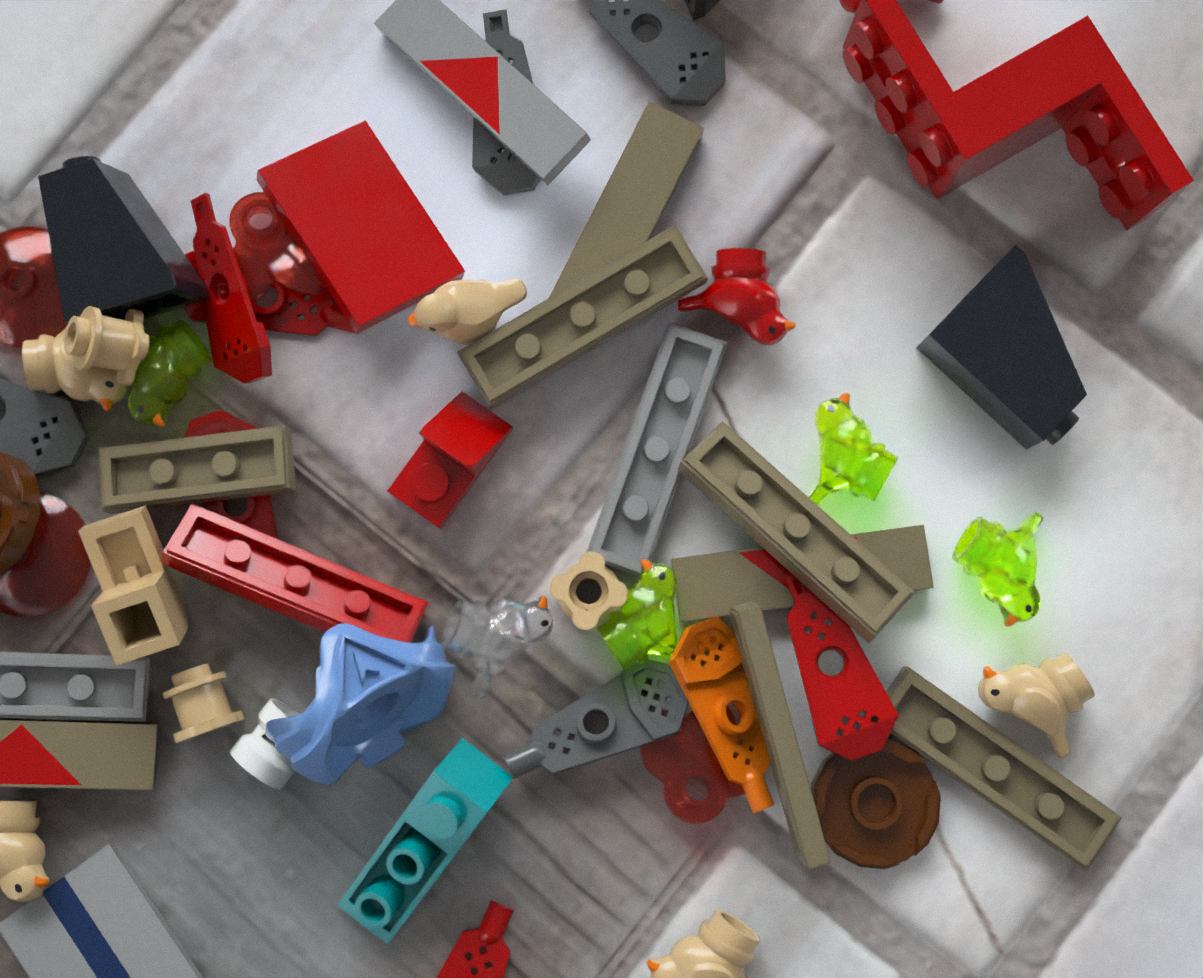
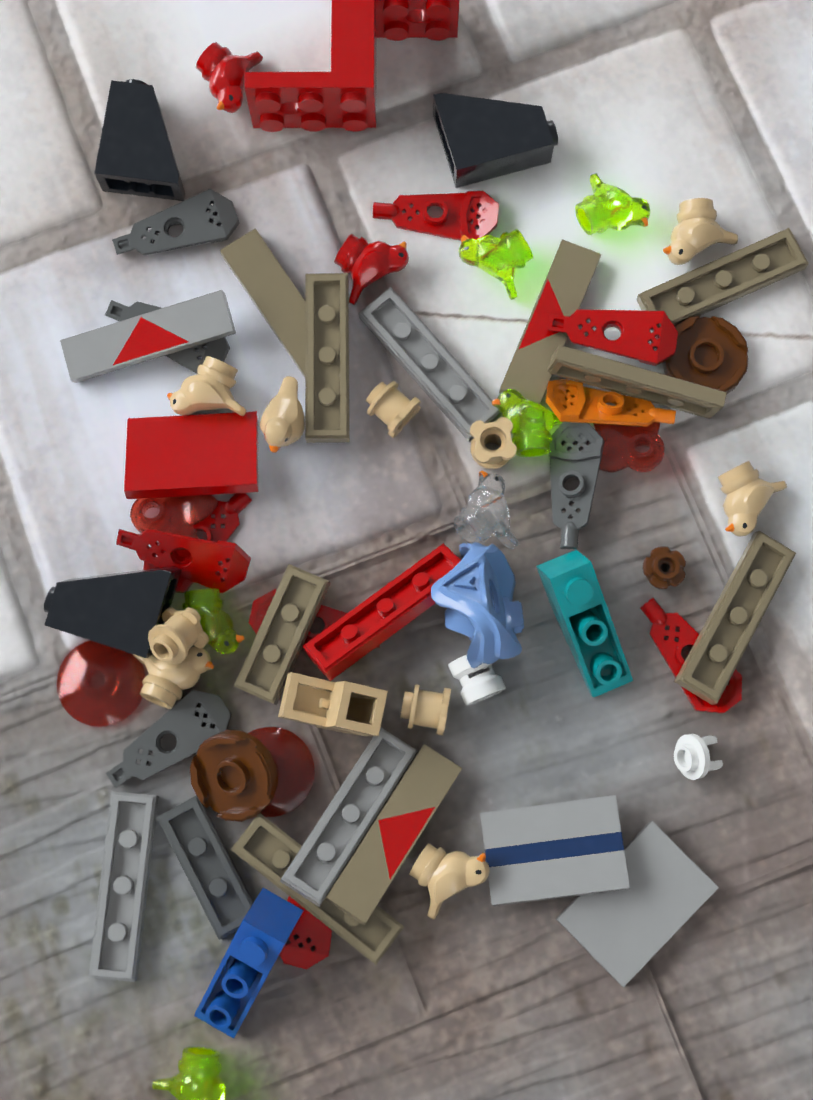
camera: 60 degrees left, 5 degrees down
(450, 458) = (365, 484): red slope -> none
(456, 195) = (207, 390): none -> tan animal
(566, 435) = (392, 406): none -> tan brick
(568, 892) = (653, 570): none -> reddish brown plate
(796, 531) = (525, 308): dark tan tile -> none
(874, 370) = (455, 216): none -> red piece

